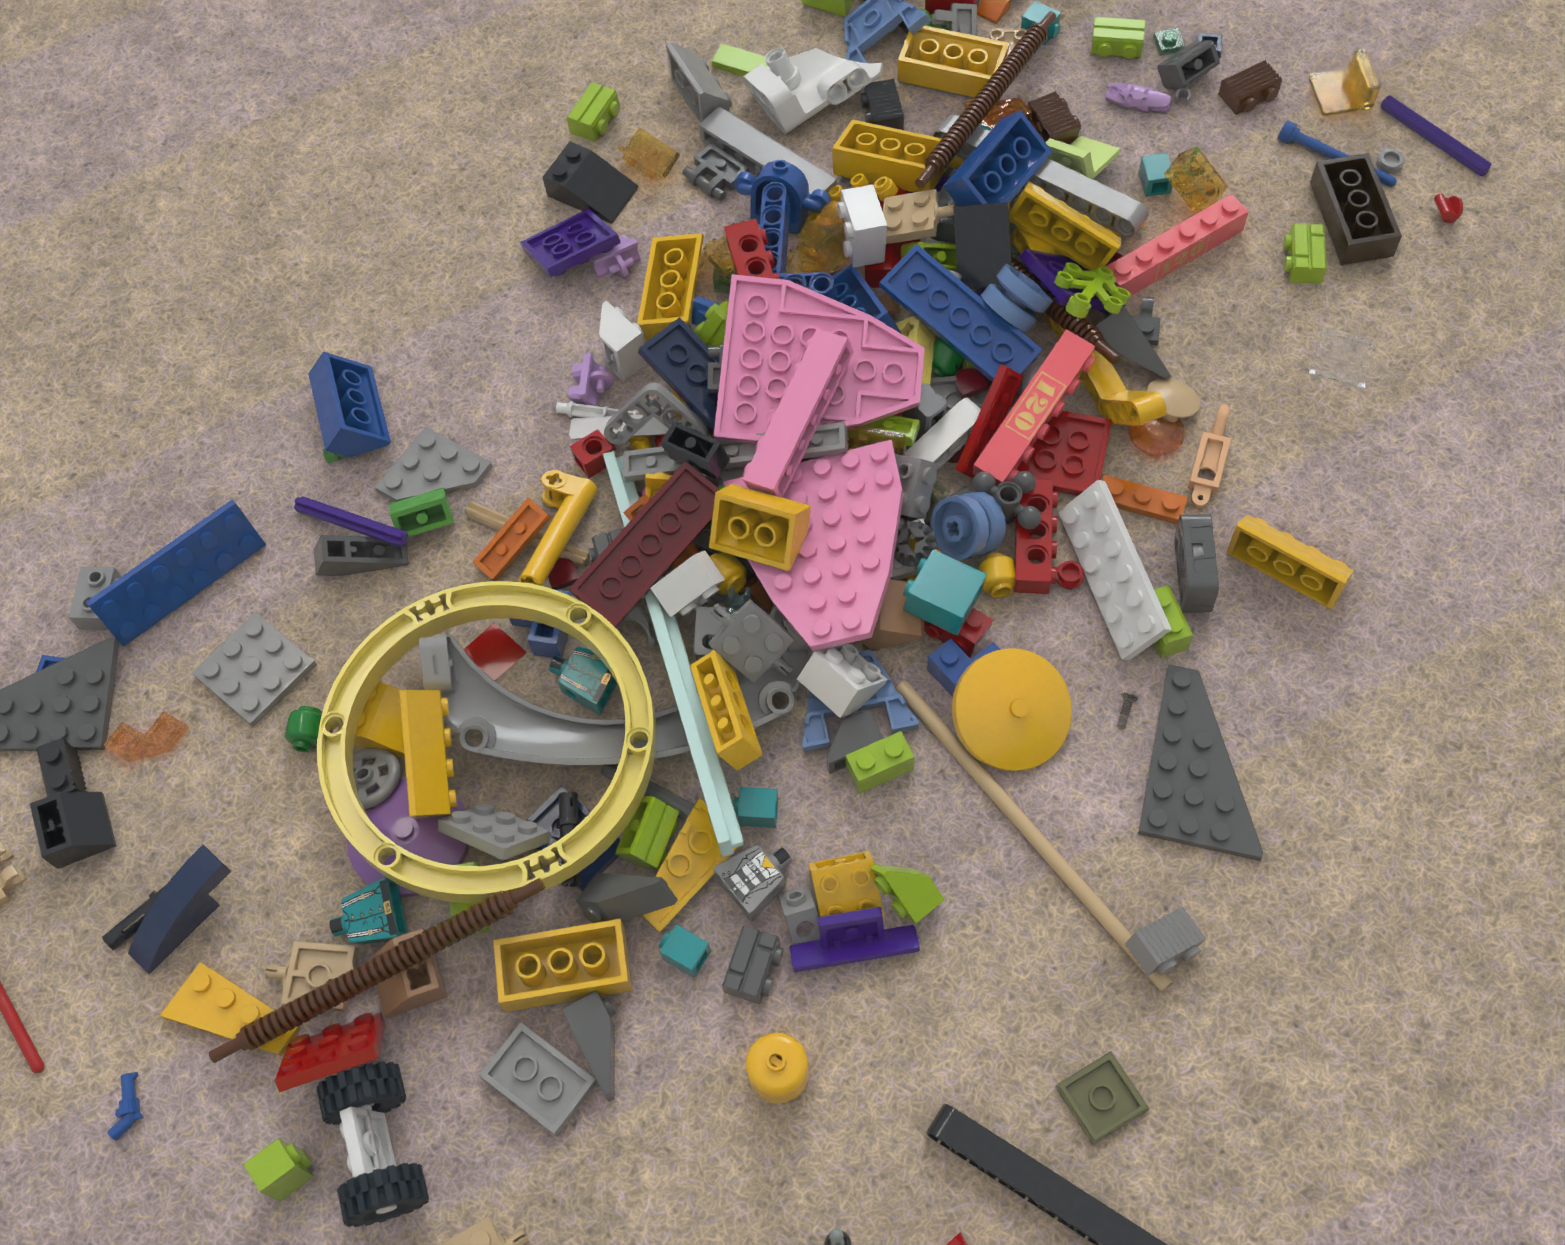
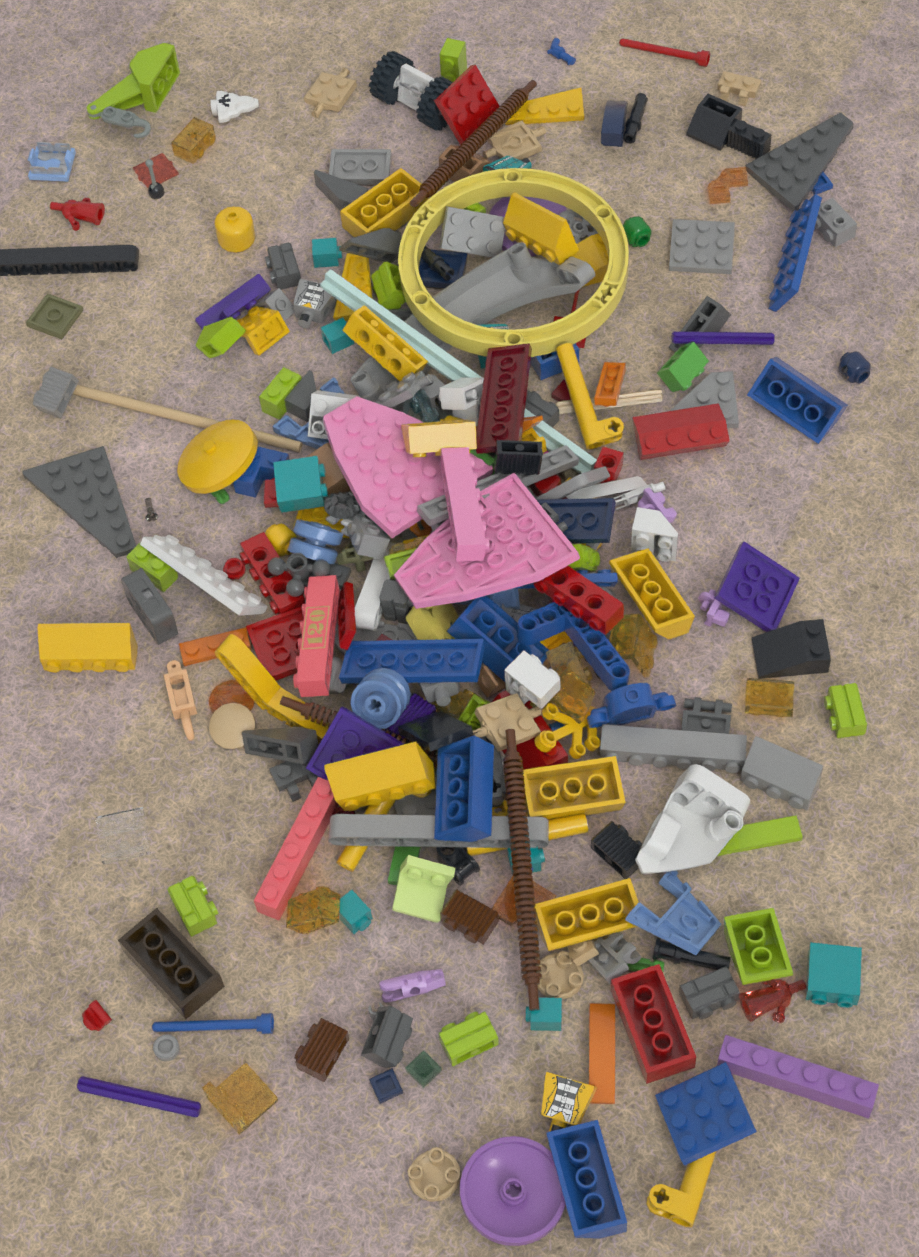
camera: 145 degrees right, 5 degrees down
(258, 416) = (854, 367): none -> dark blue head
(493, 438) = (680, 431): none -> red slope
(1099, 282) = (329, 739): lime plant -> none

